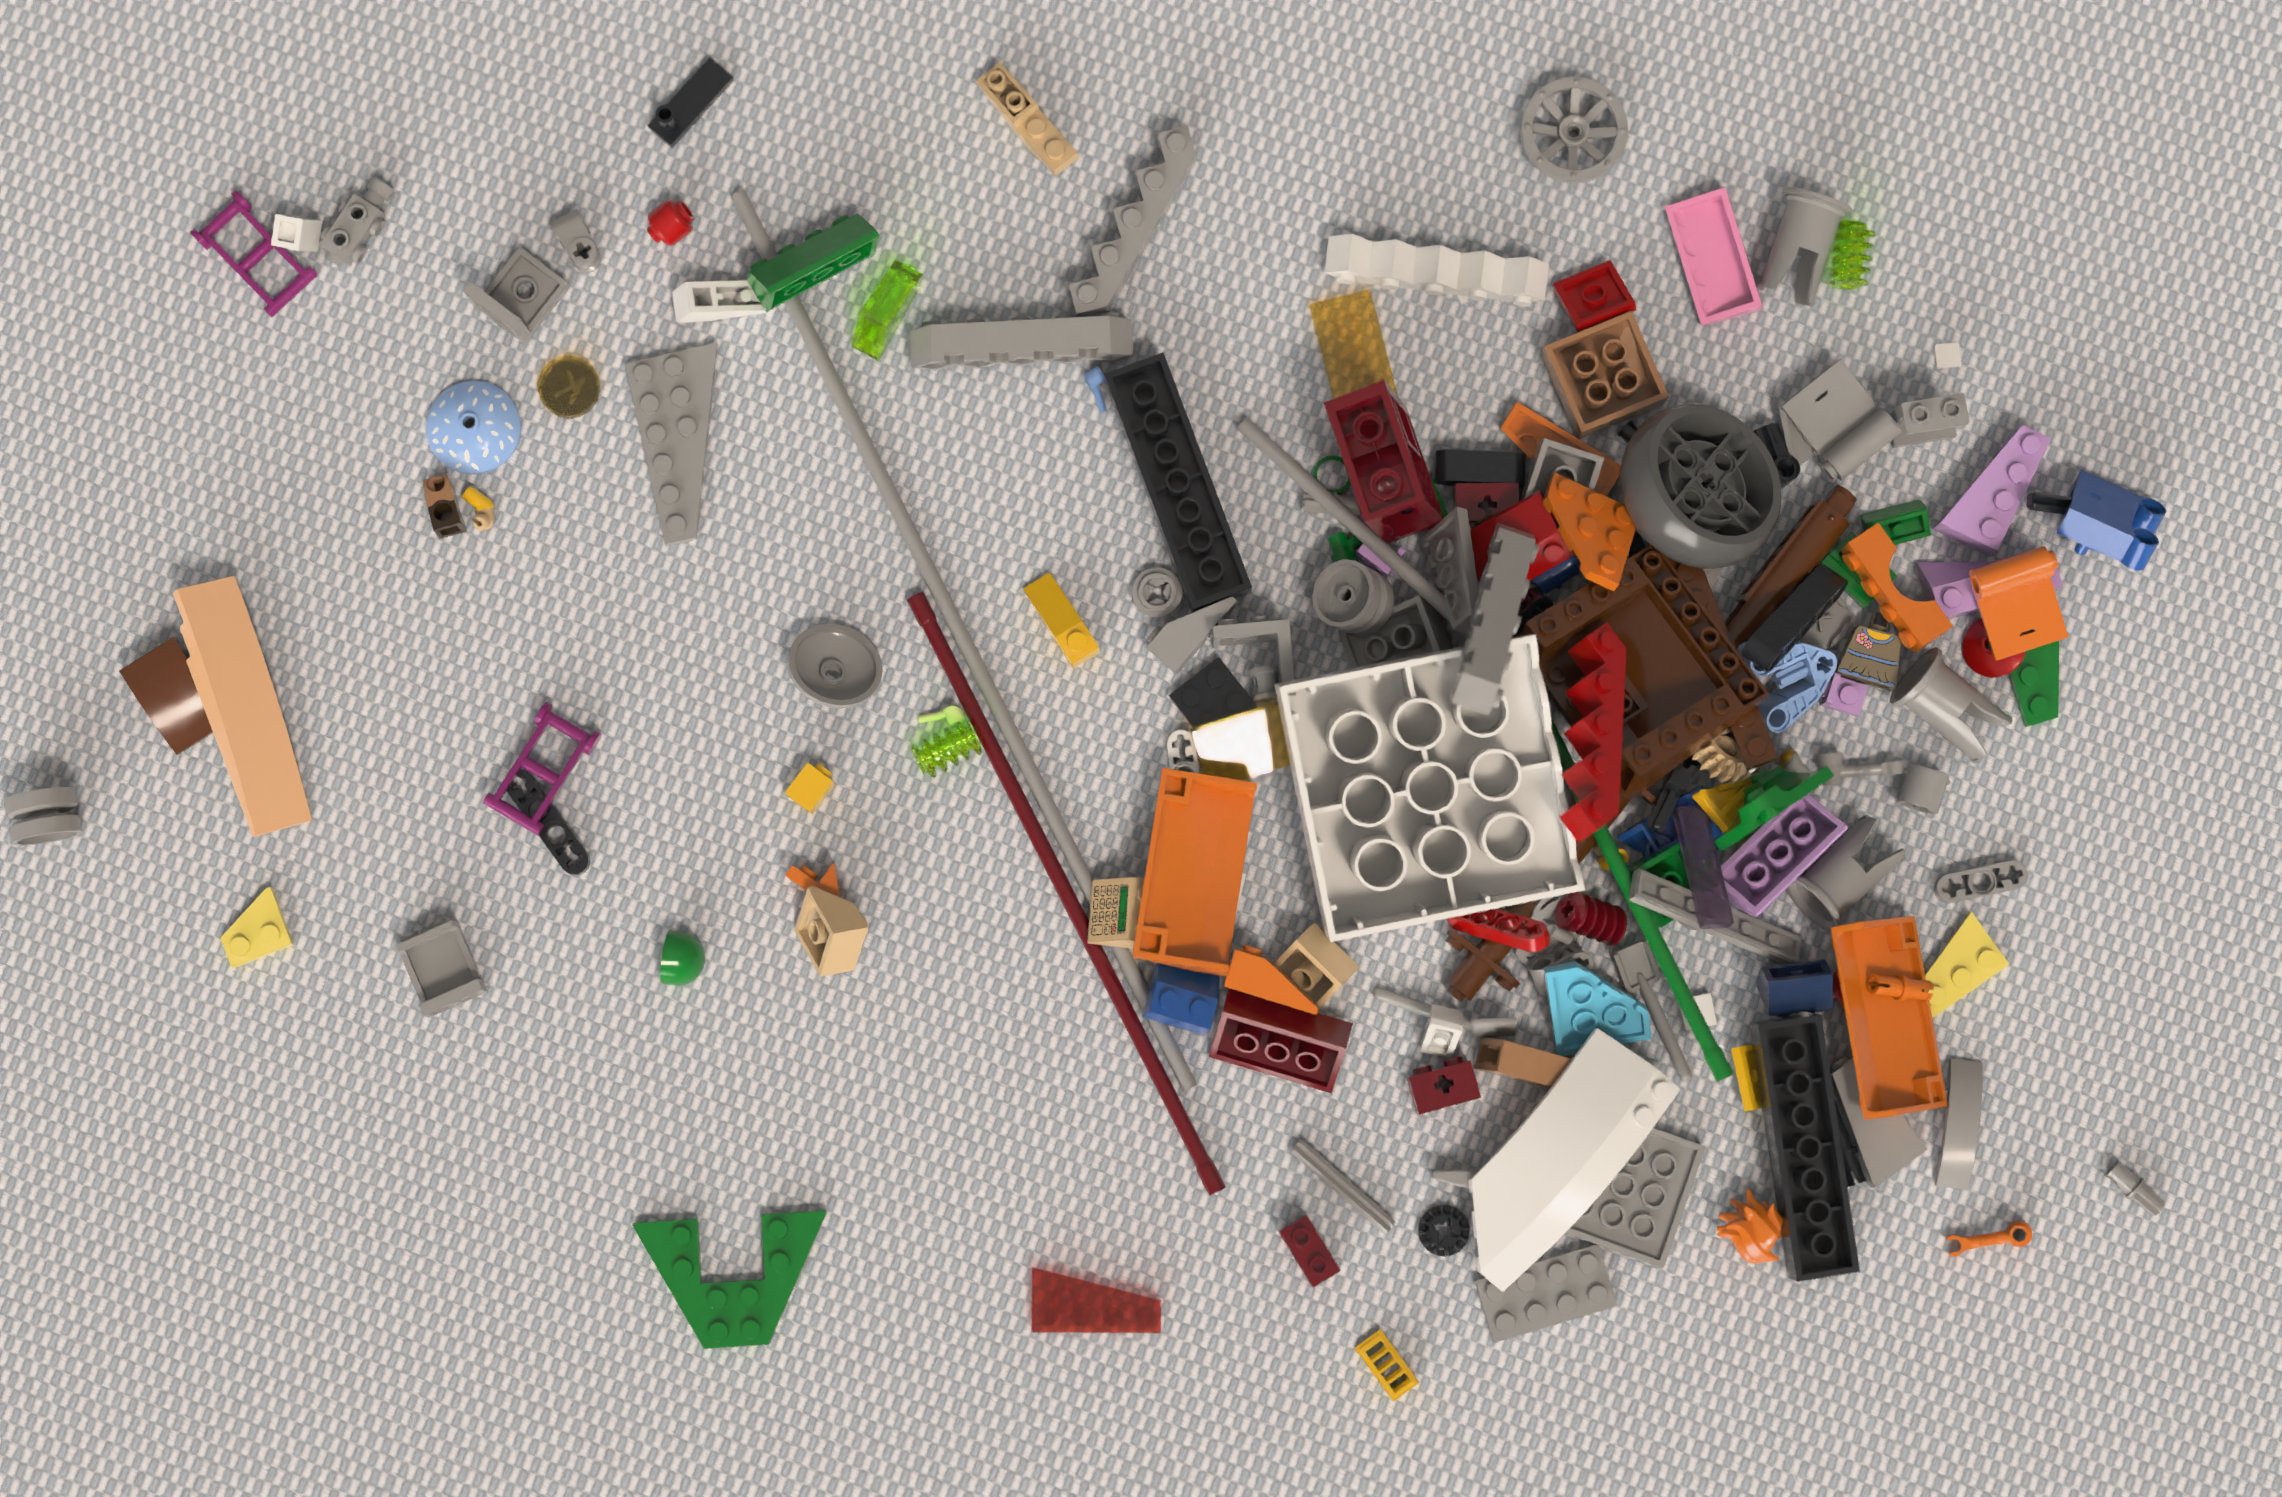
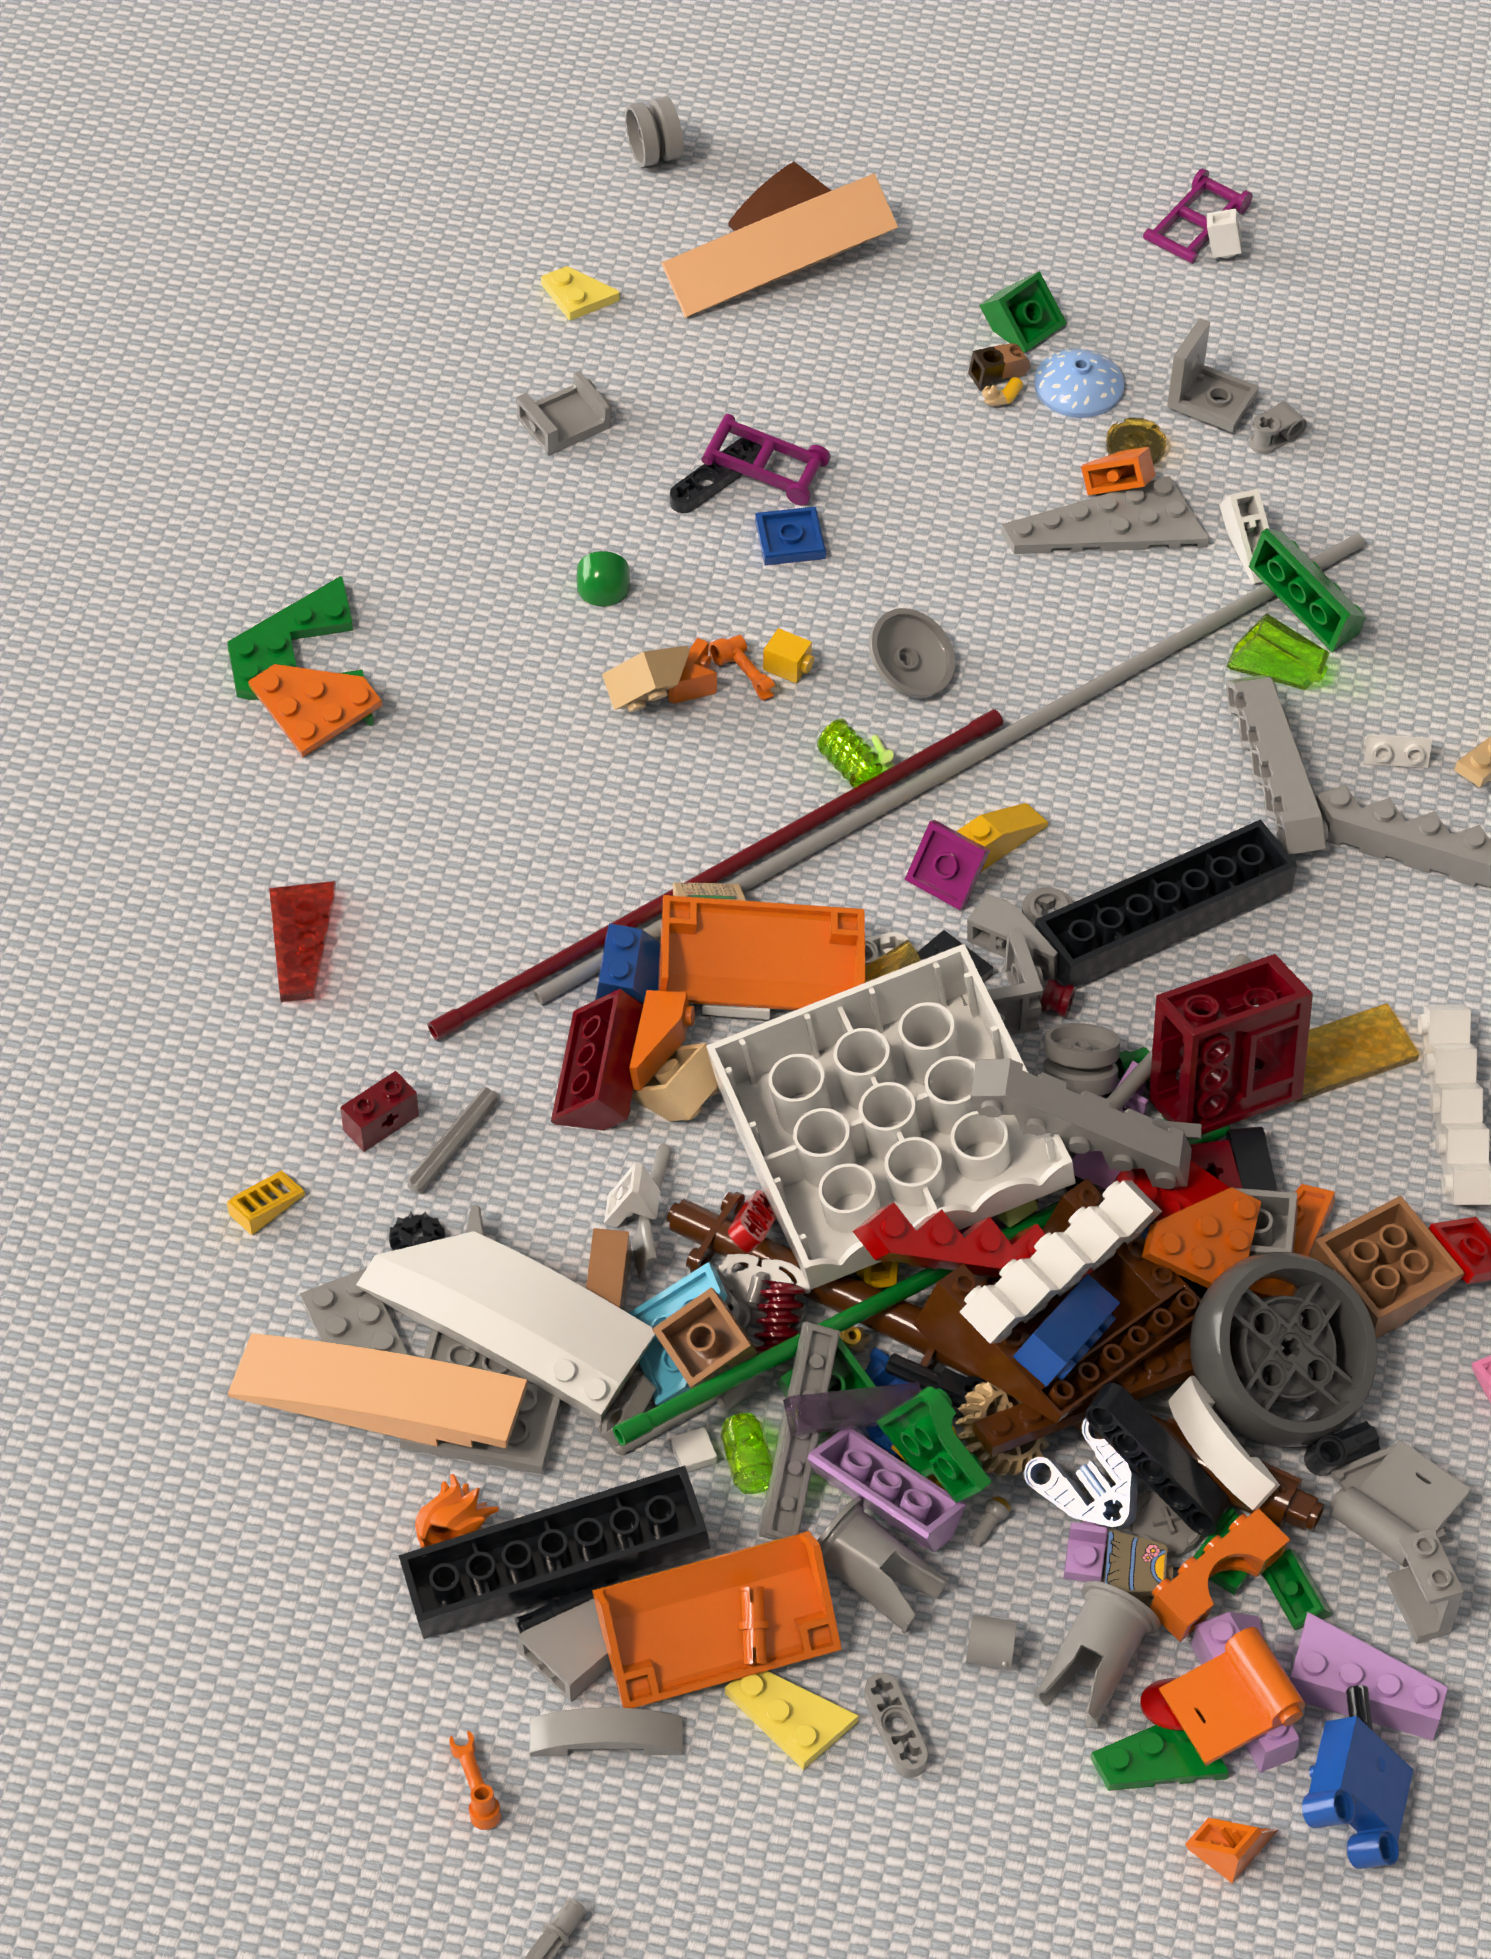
camera: 80 degrees right, 30 degrees down
(356, 230) = (1245, 277): light grey brick -> none
(374, 466) = (1024, 312): none -> green slope
(619, 411) = (1119, 471): none -> orange slope
(642, 759) = (790, 536): none -> blue tile
(670, 222) = (1315, 490): red head -> none
(690, 103) = (1434, 494): black piece -> none
(791, 842) = (733, 650): none -> orange brick
(805, 1268) = (313, 703): none -> orange plate
(1016, 208) = (1397, 750): none -> white hinge
(1104, 678) = (947, 864): none -> magenta plate
(1265, 603) = (1057, 998): none -> dark red wheel
(1428, 1099) = (571, 1211): dark red brick -> none
(1621, 1283) = (380, 1390): none -> light nougat slope
(1633, 988) = (704, 1338): none -> medium nougat brick
(1635, 666) = (1059, 1261): none -> white brick
(1660, 1059) = (631, 1402): none -> light grey piece
(1689, 672) = (1068, 1331): none -> blue brick
(1699, 968) = (747, 1453): none -> clear neon green piece
(1788, 568) = (1218, 1447): none -> white slope
(1796, 988) = (733, 1512): dark blue slope -> none
(1835, 764) = (996, 1554): light grey brick -> none
(2121, 628) = (1228, 1845): none -> orange slope

